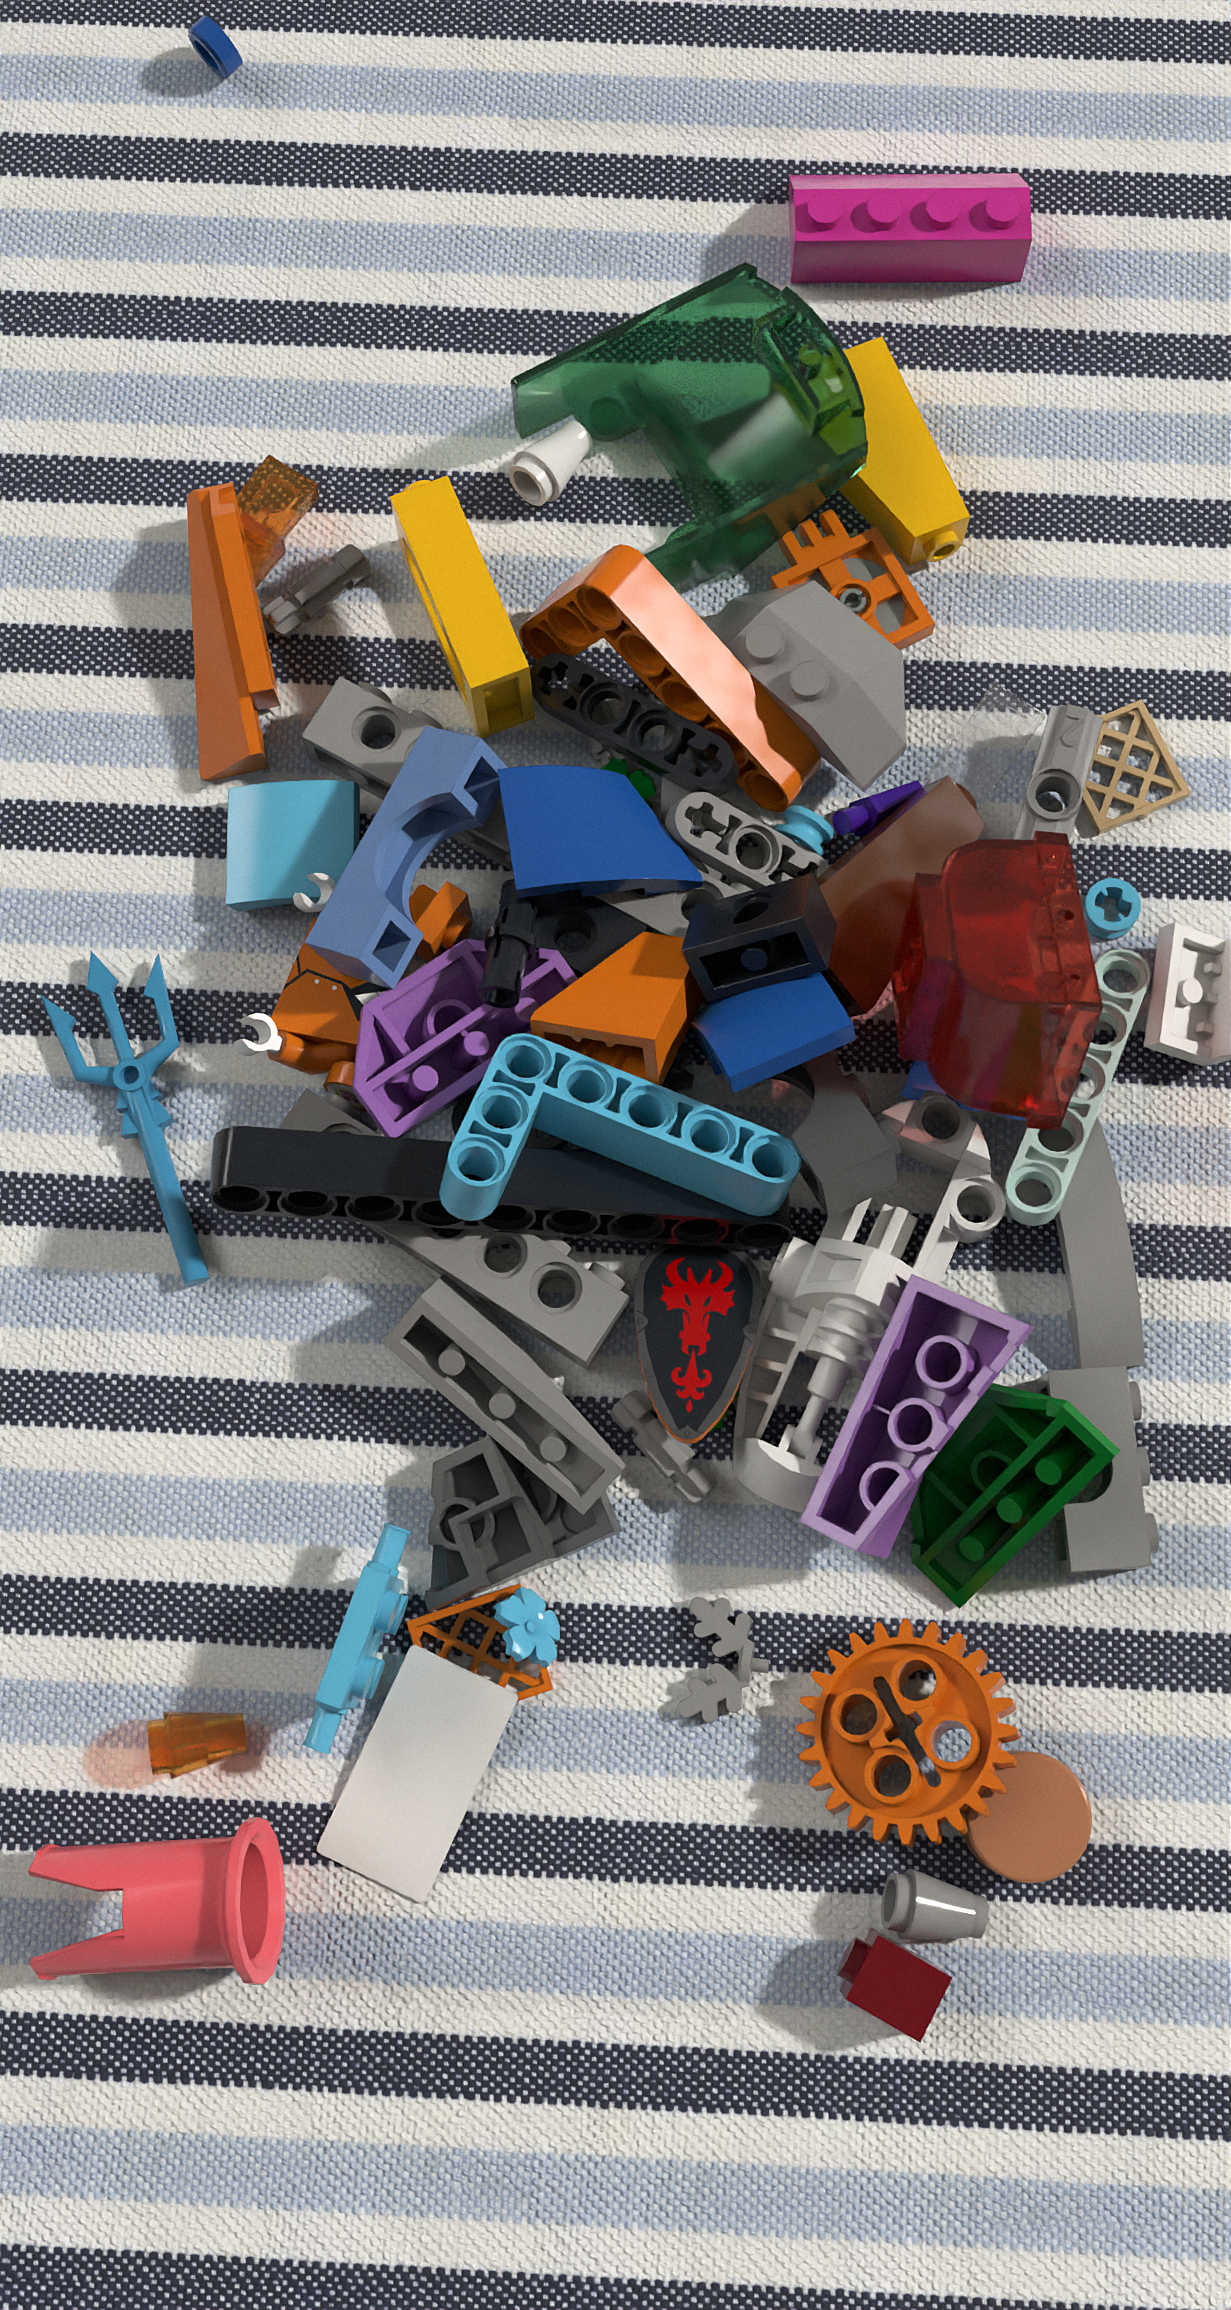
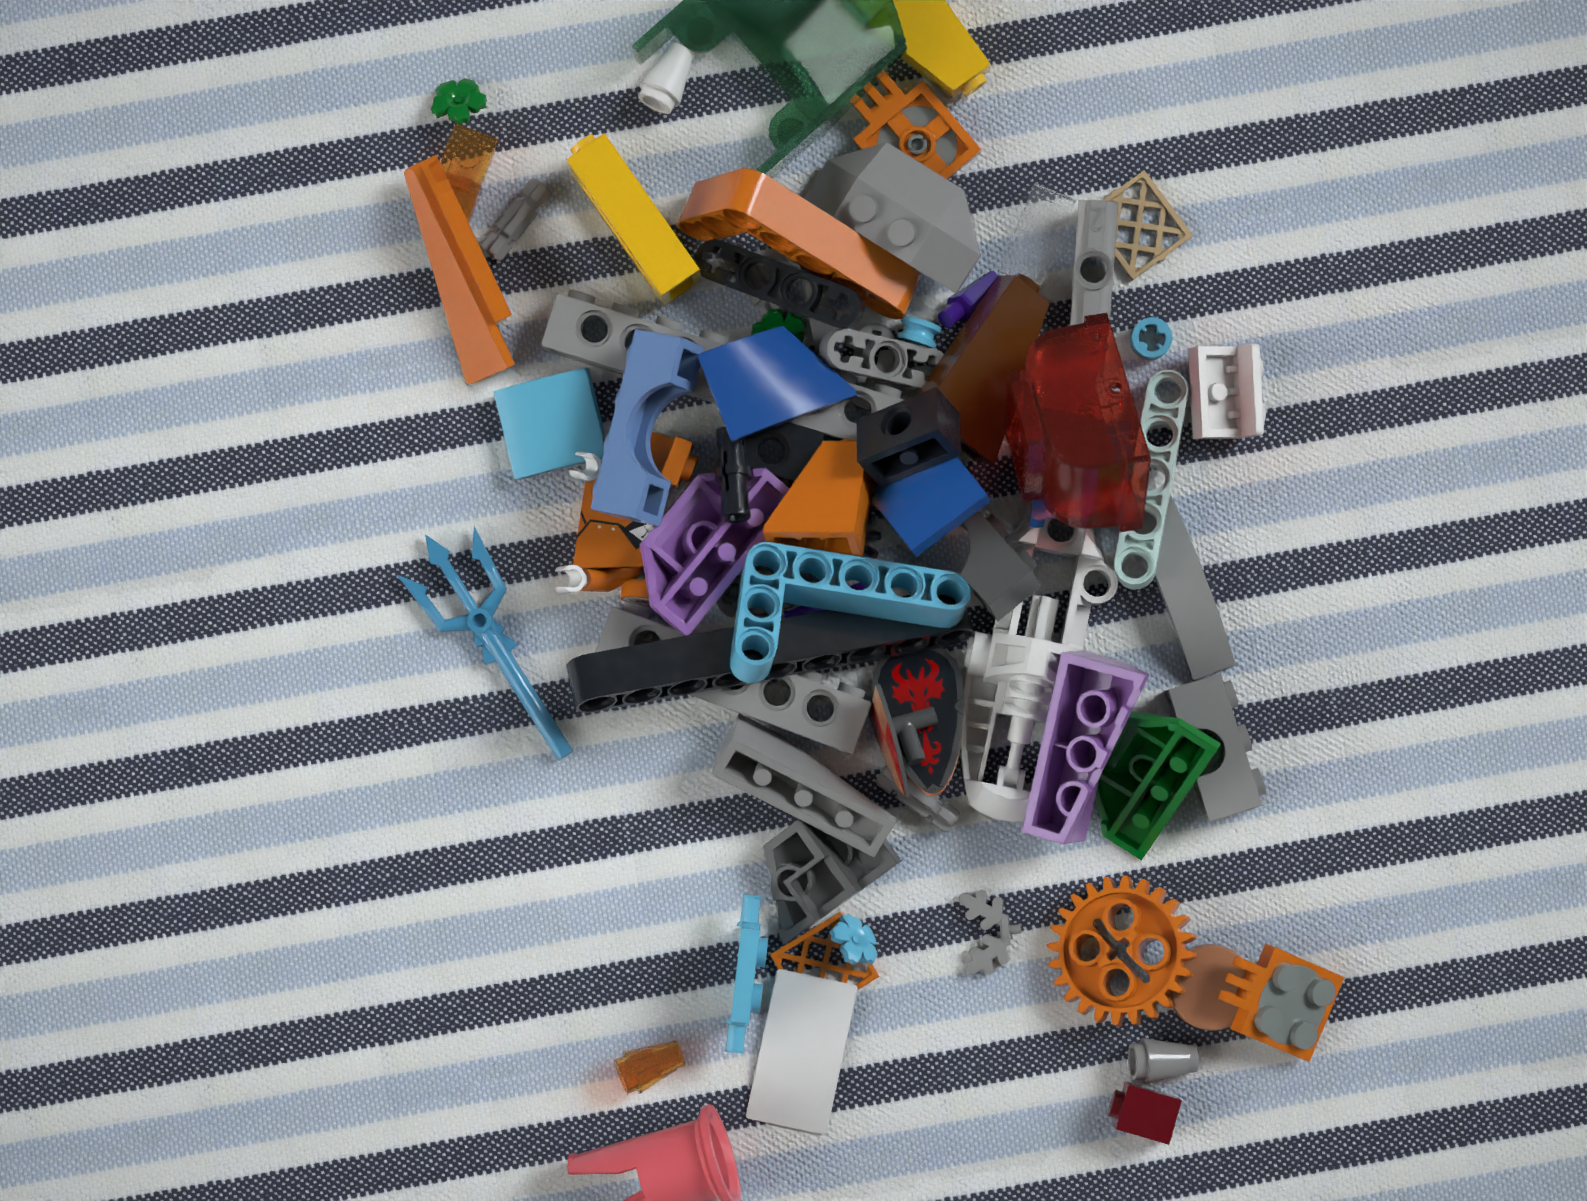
camera: 20 degrees left, 10 degrees up
(279, 434) = (458, 100): none -> green plant
(667, 1339) = (905, 727): none -> dark grey shield
(1127, 1861) = (1282, 1000): none -> piece

